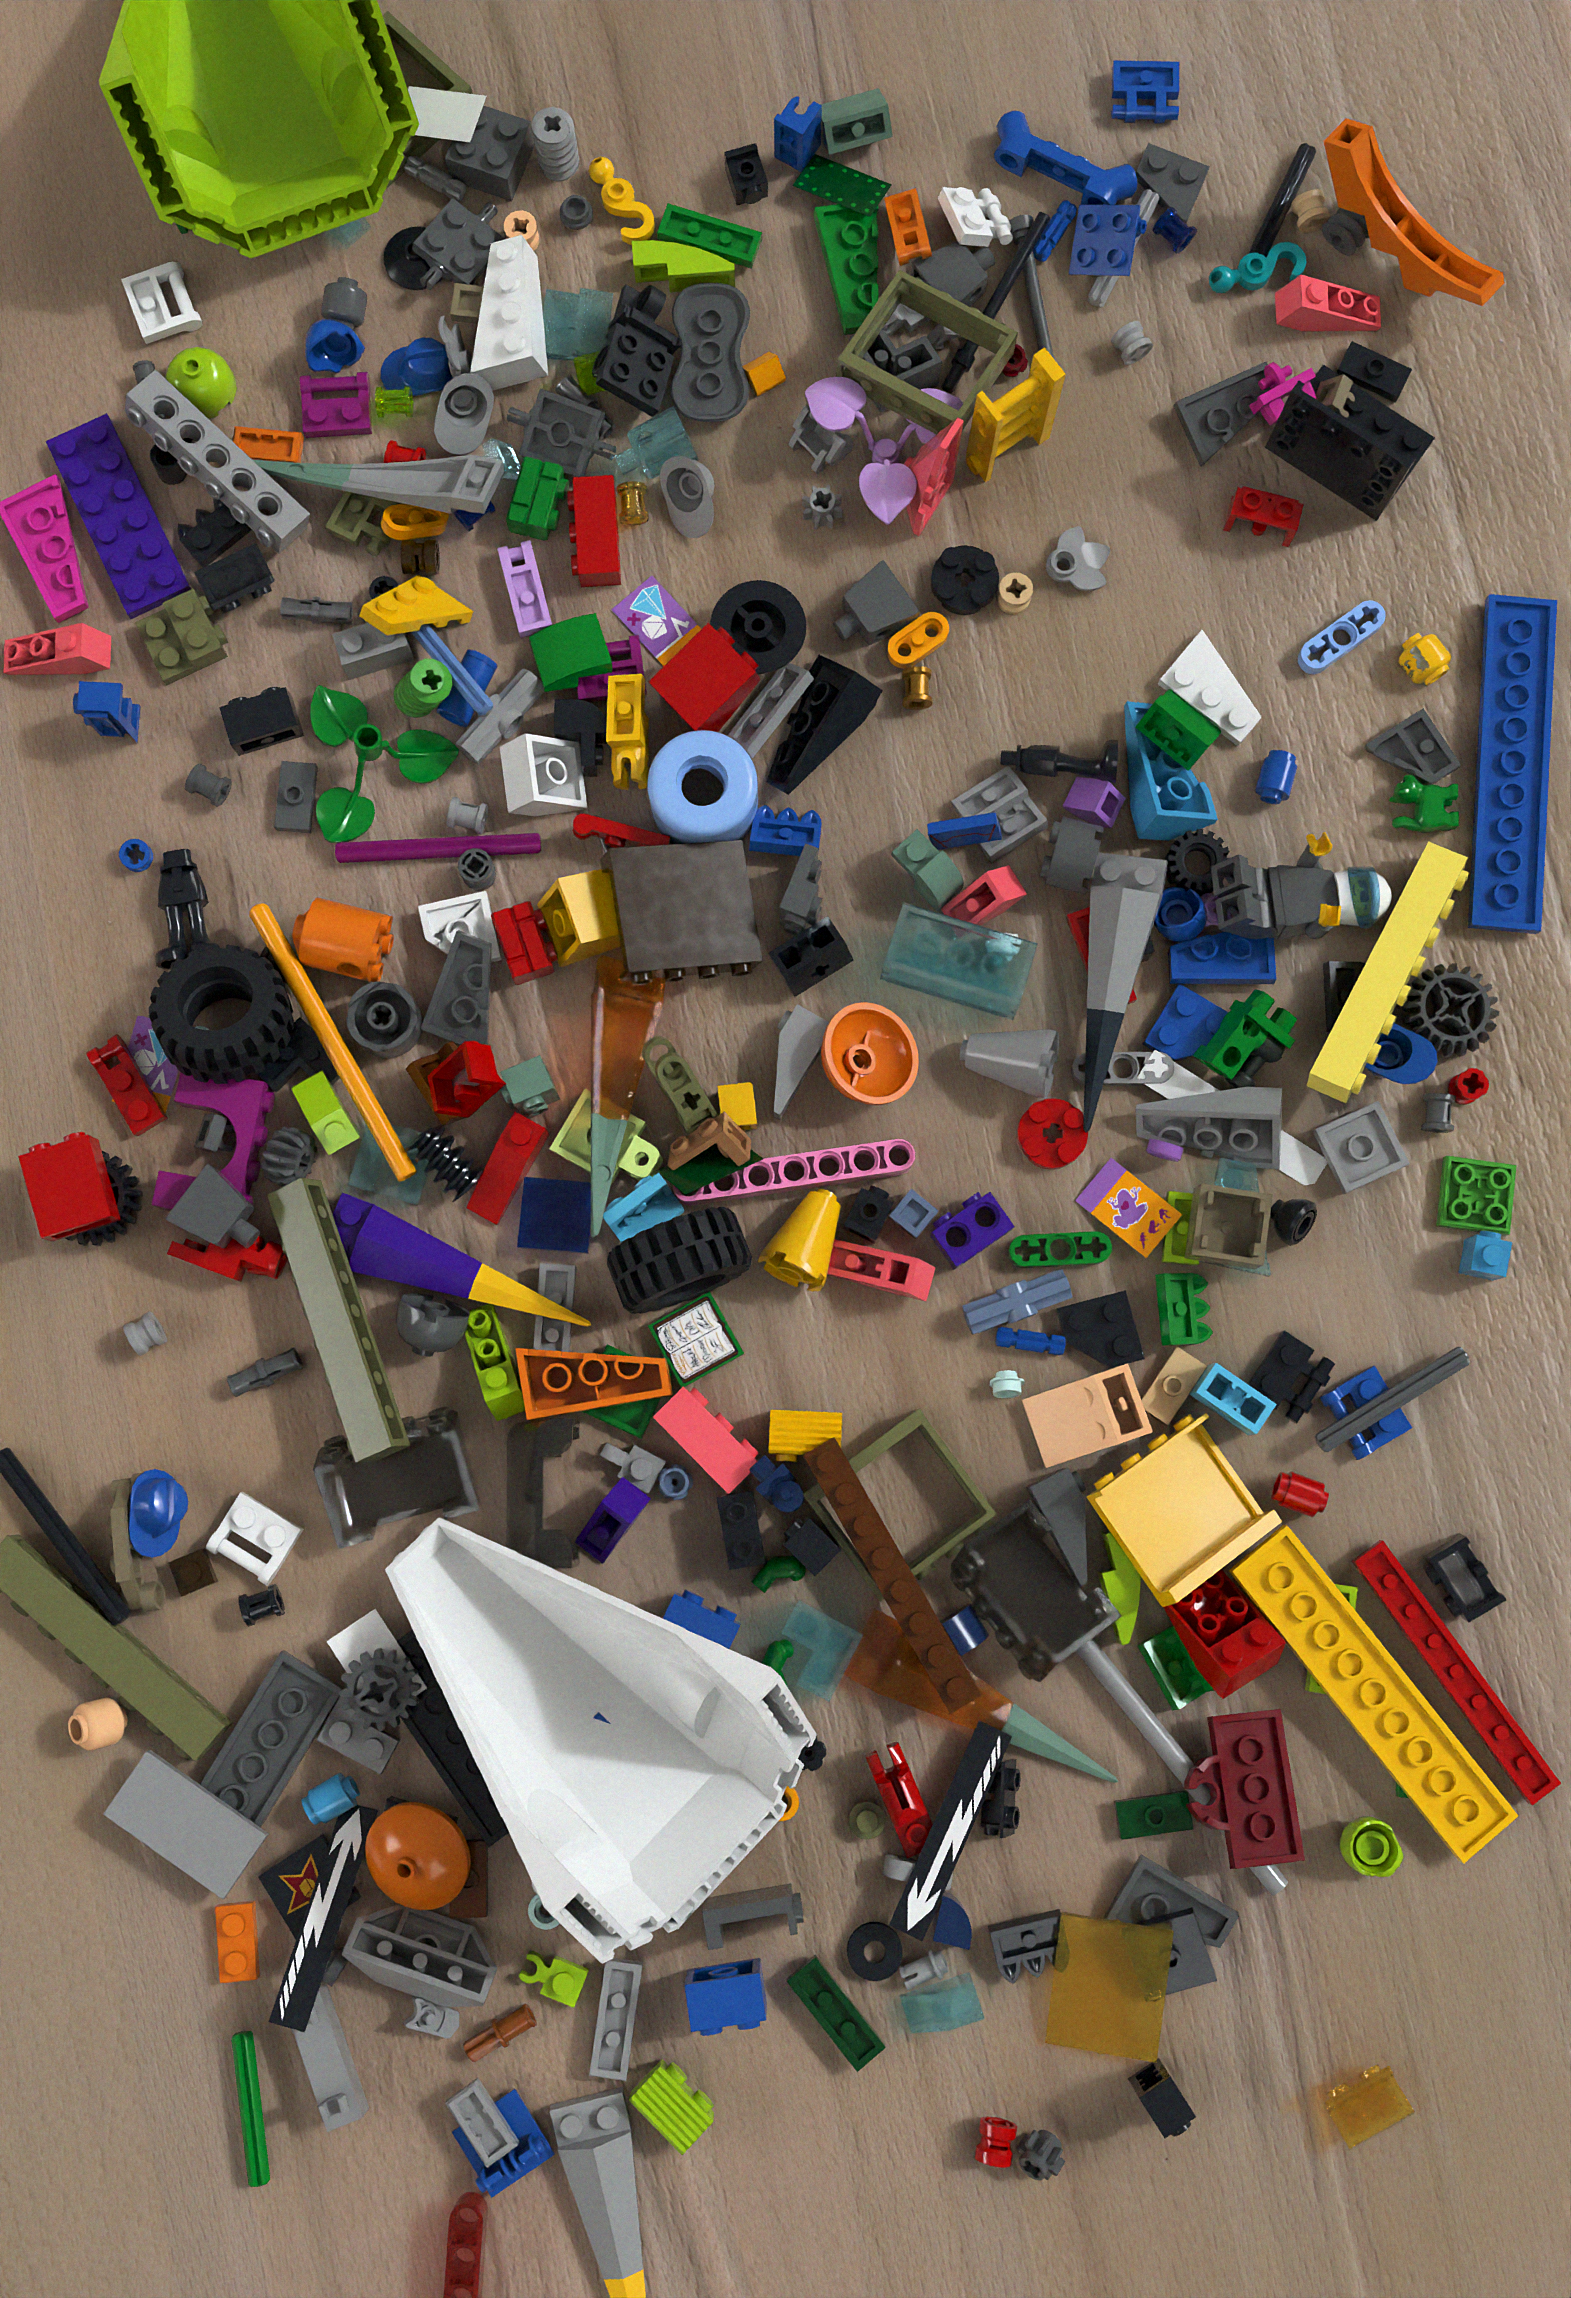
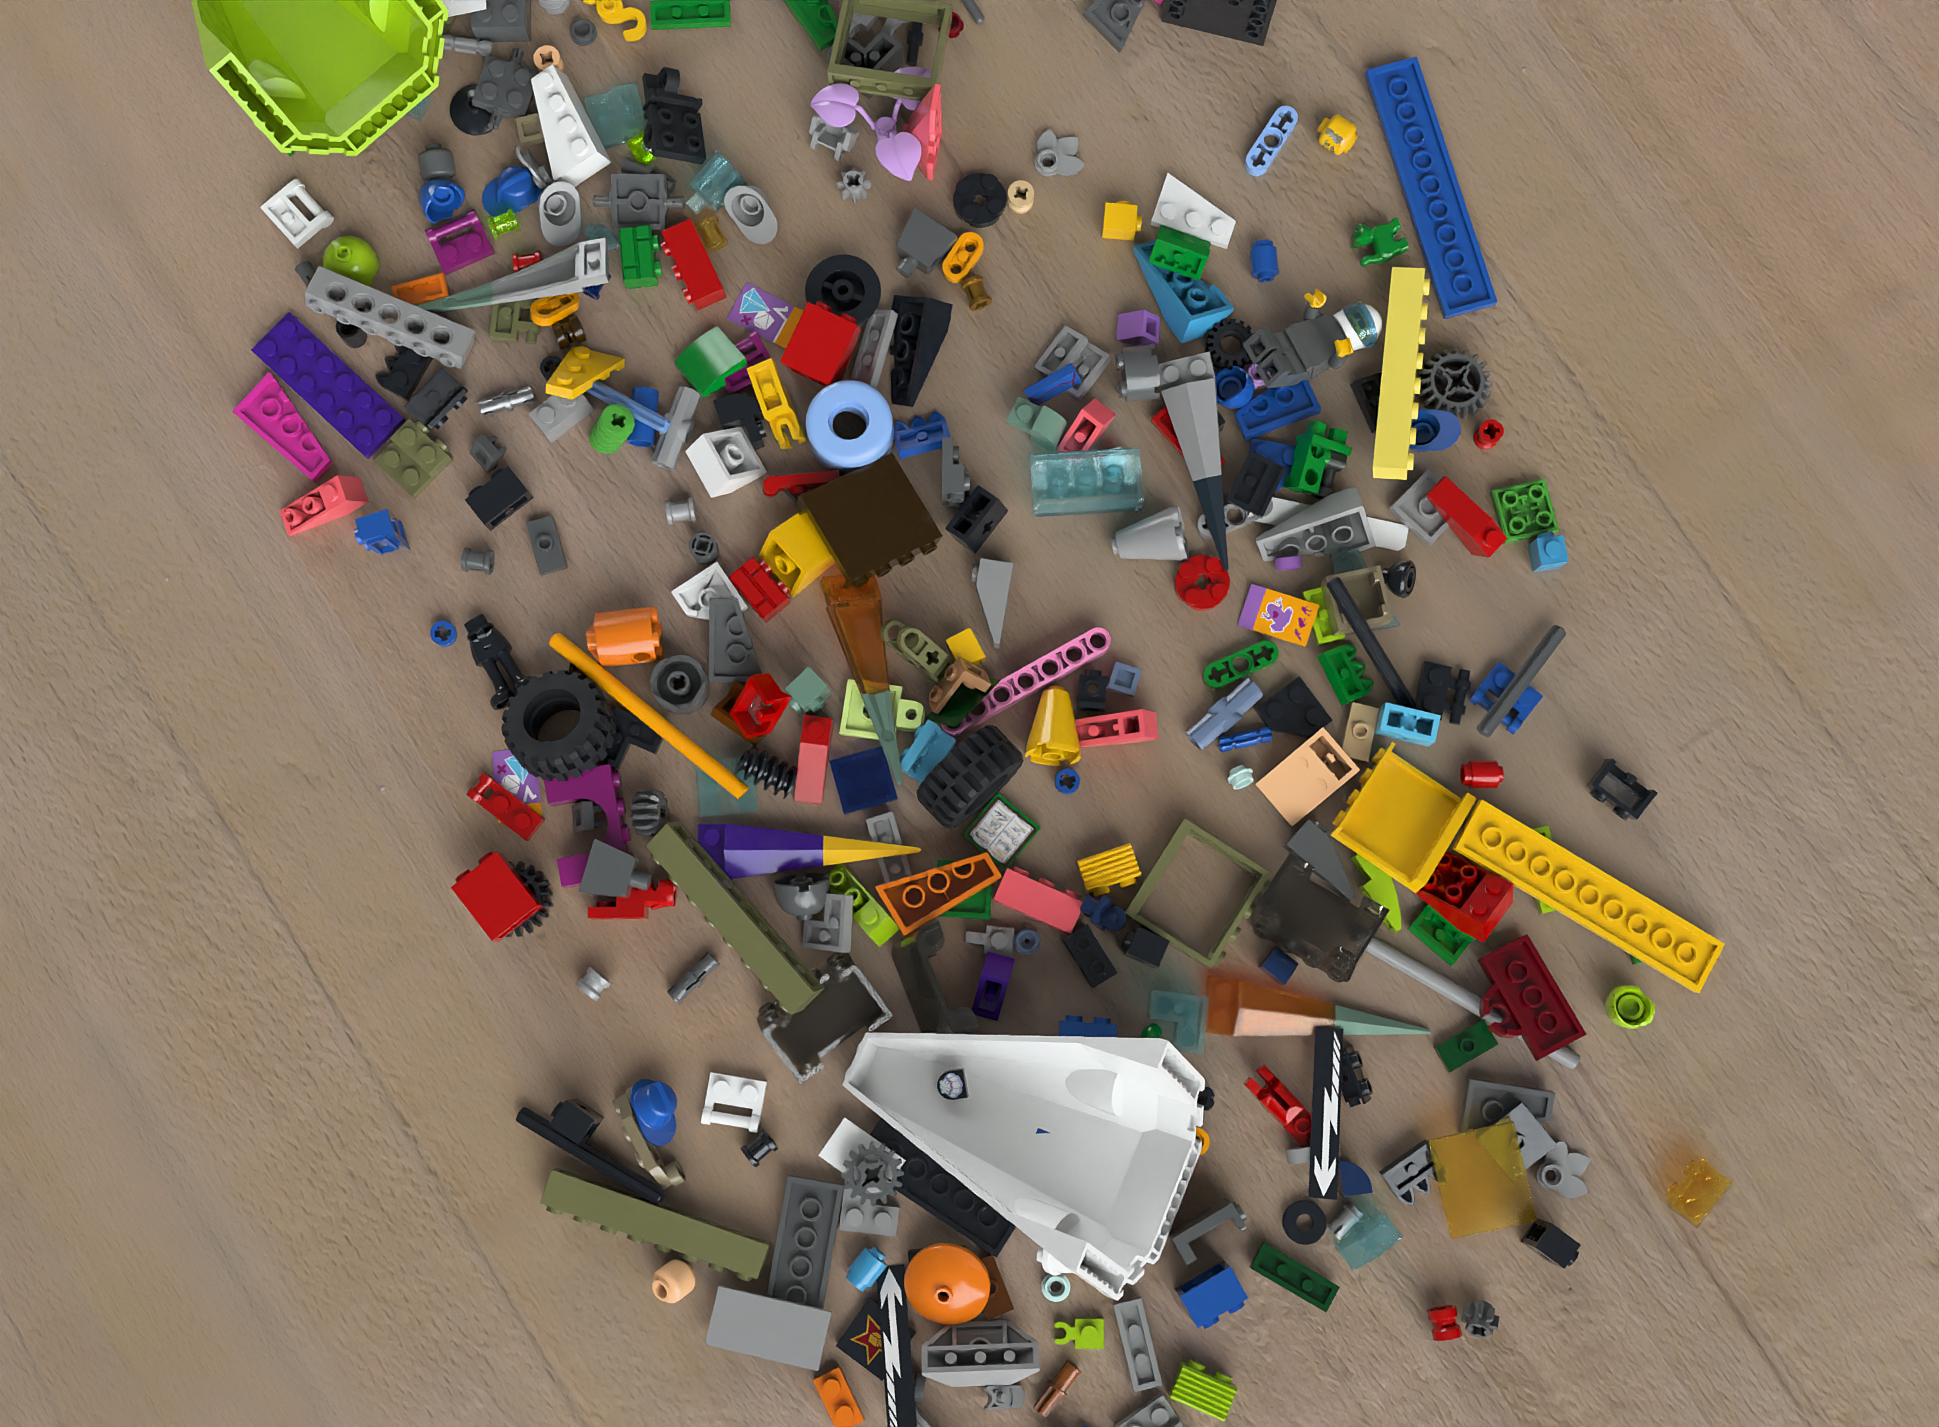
camera: 20 degrees left, 0 degrees up
(58, 1488) = (575, 1120): none -> black brick
(193, 1572) = (698, 1144): dark brown plate -> none
(268, 662) = (486, 453): none -> dark grey tile
(325, 1112) = (663, 769): lime slope -> none
(341, 716) = (557, 472): green plant -> none
(436, 847) = (666, 543): magenta axle -> none
(449, 1381) = (835, 930): none -> light grey plate
(517, 1620) = (953, 1084): none -> tile
(525, 589) = (657, 327): lavender plate -> none
(679, 265) = (678, 43): lime slope -> none
(710, 373) = (732, 118): dark grey plate -> none
(764, 373) = (771, 101): light orange slope -> none
(779, 1568) = (1128, 973): green arm -> none
(789, 1317) = (1064, 789): none -> blue bush
(867, 1820) = (1262, 1130): olive plate -> none
(879, 1045) = (1053, 567): orange hat -> none
(892, 1575) = (1212, 945): reddish brown plate -> none
(976, 1236) = (1175, 677): dark purple brick -> none
(1019, 413) = (977, 61): yellow fence -> none
(1048, 761) = (1093, 310): black piece -> none
(1123, 666) = (1121, 221): none -> yellow brick
(1161, 1040) = (1256, 484): none -> black plate
(1217, 2015) = (1566, 1169): none -> light grey plate
(1224, 1284) = (1370, 643): none -> black axle
(1264, 510) = (1179, 68): red window -> none
(1400, 1178) = (1466, 518): none -> red slope
(1416, 749) = (1356, 203): dark grey wing -> none
(1438, 1112) = (1474, 461): dark grey bush -> none
(1456, 1672) = (1641, 859): red plate -> none

